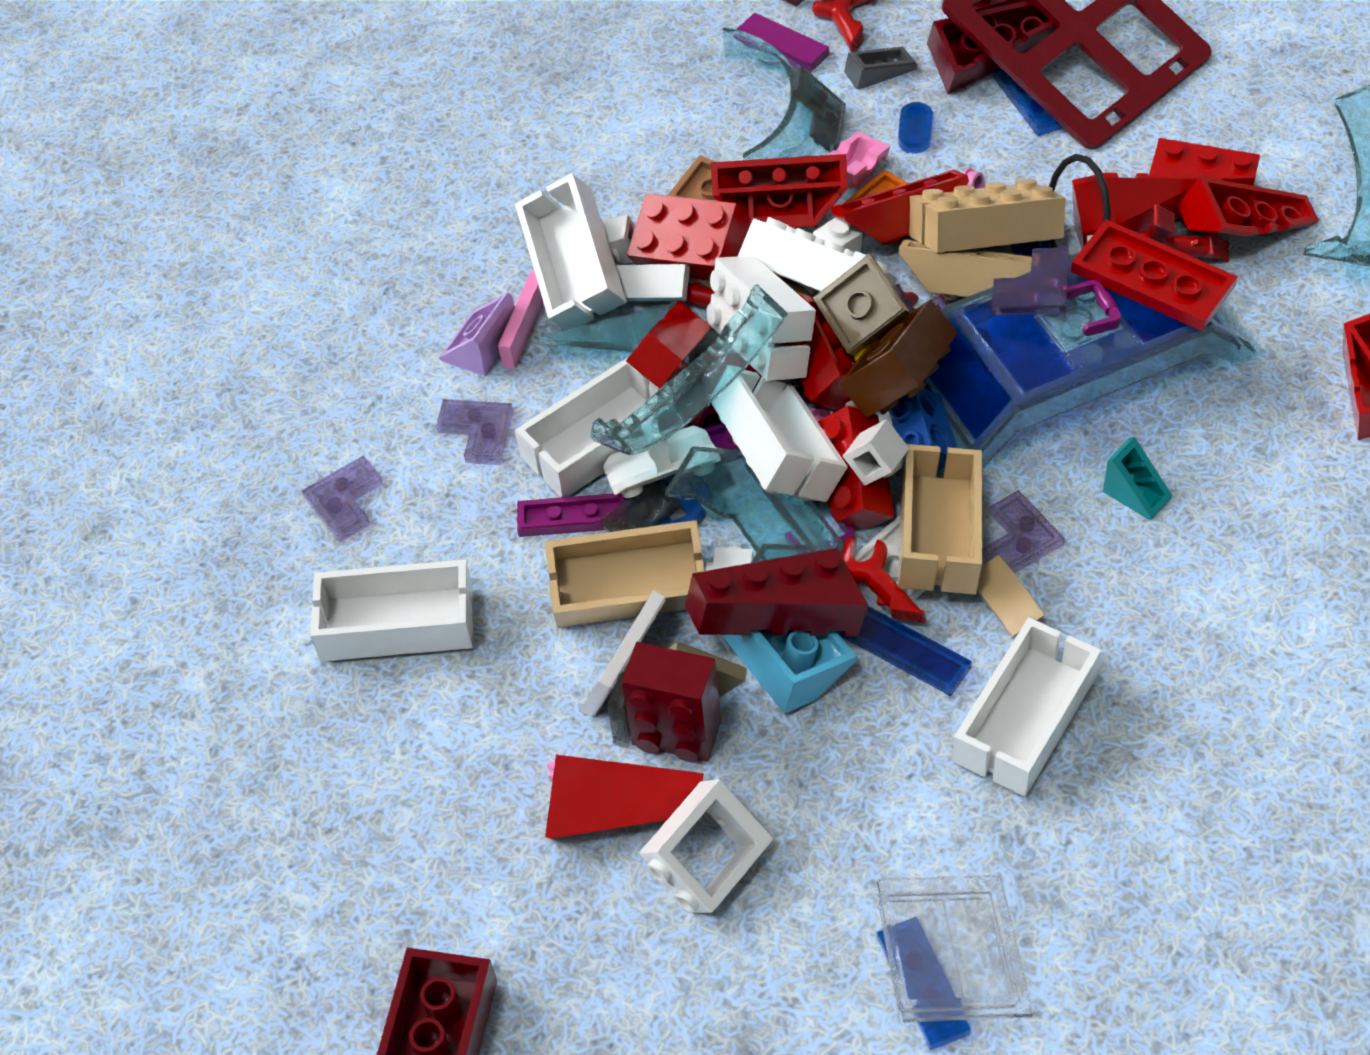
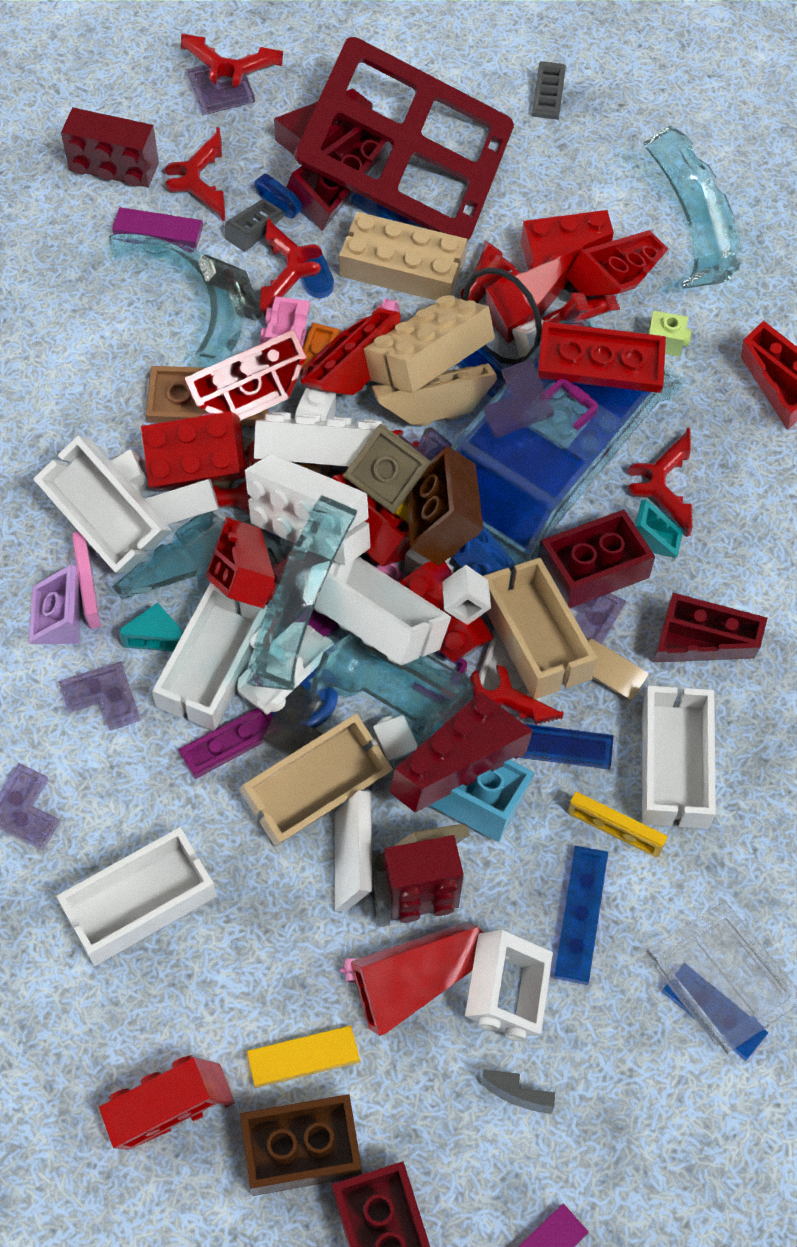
camera: 35 degrees left, 10 degrees up
(306, 802) = (164, 1101): none -> red wedge
(404, 901) = (300, 1145): none -> reddish brown brick
(465, 830) = (303, 1056): none -> yellow tile
(550, 381) = (151, 631): none -> teal slope
(652, 954) = (506, 1087): none -> dark grey slope
(831, 823) = (581, 915): none -> clear blue tile
(898, 111) = (295, 267): none -> red piece
(917, 46) = (278, 195): none -> clear blue tile
(922, 748) = (617, 824): none -> yellow tile
(1010, 135) = (402, 257): none -> tan piece
(1049, 480) = (597, 558): none -> dark red brick
(1106, 162) = (491, 258): none -> red piece
(1134, 597) = (707, 632): none -> dark red wedge
(1172, 429) = (657, 488): none -> red piece
(1265, 297) = (674, 329): none -> yellowish green brick
(1269, 31) = (550, 74): none -> dark grey slope

